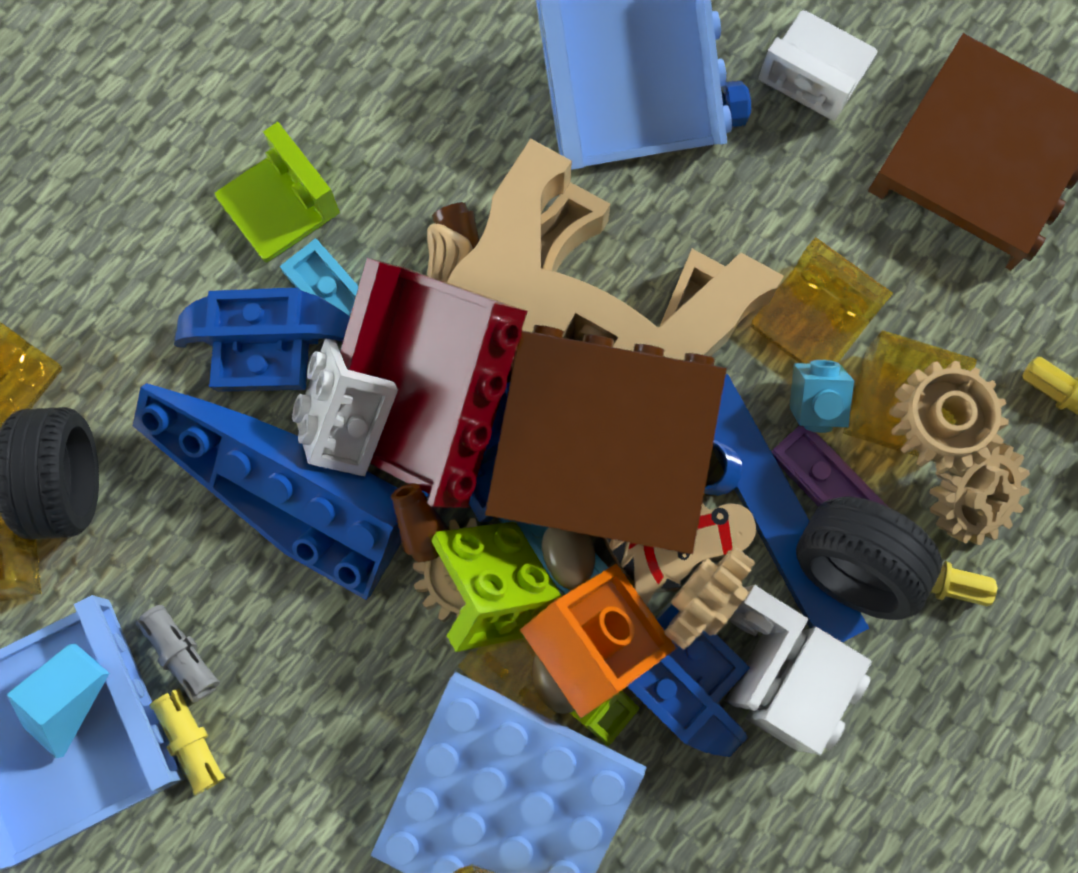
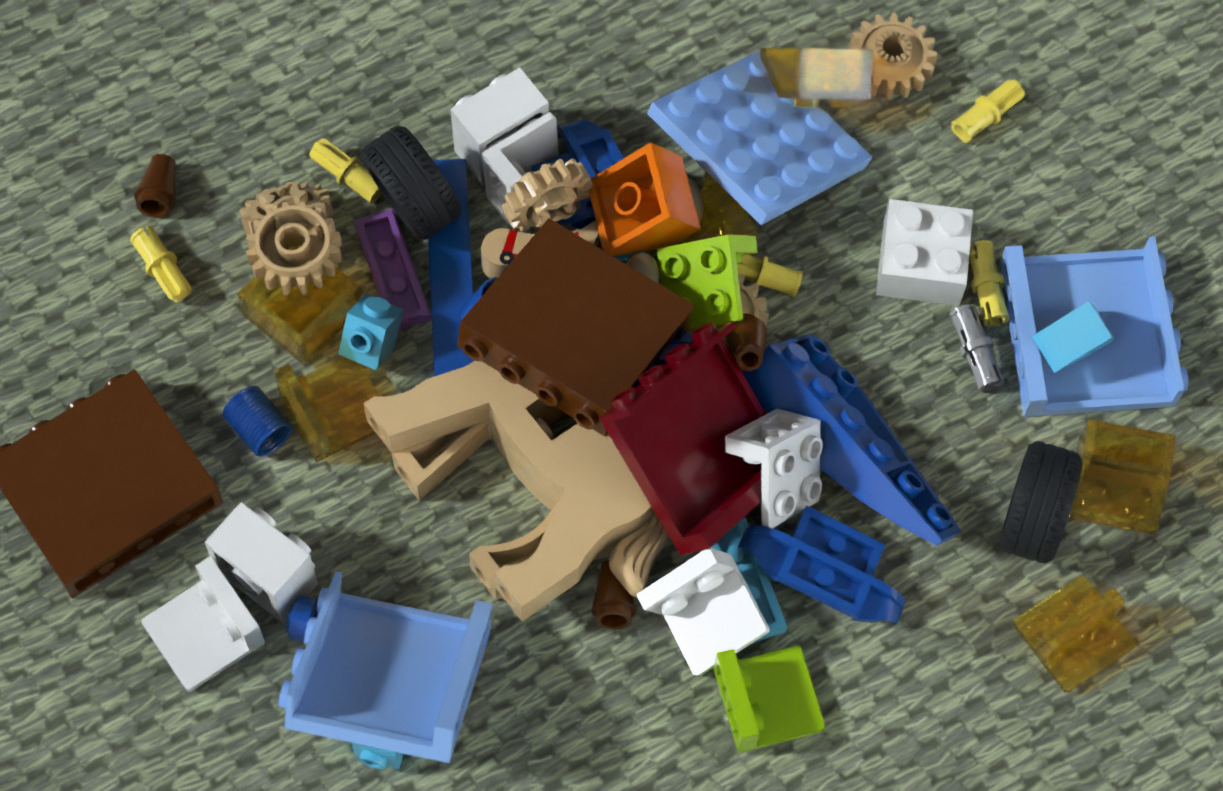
camera: 160 degrees left, 10 degrees down
(265, 743) = (924, 252): none -> white brick
(350, 234) = (706, 608): none -> white bracket
(429, 646) = (770, 274): none -> light yellow axle
(799, 118) = (262, 560): none -> white brick
(884, 262) = (255, 419): none -> blue piece

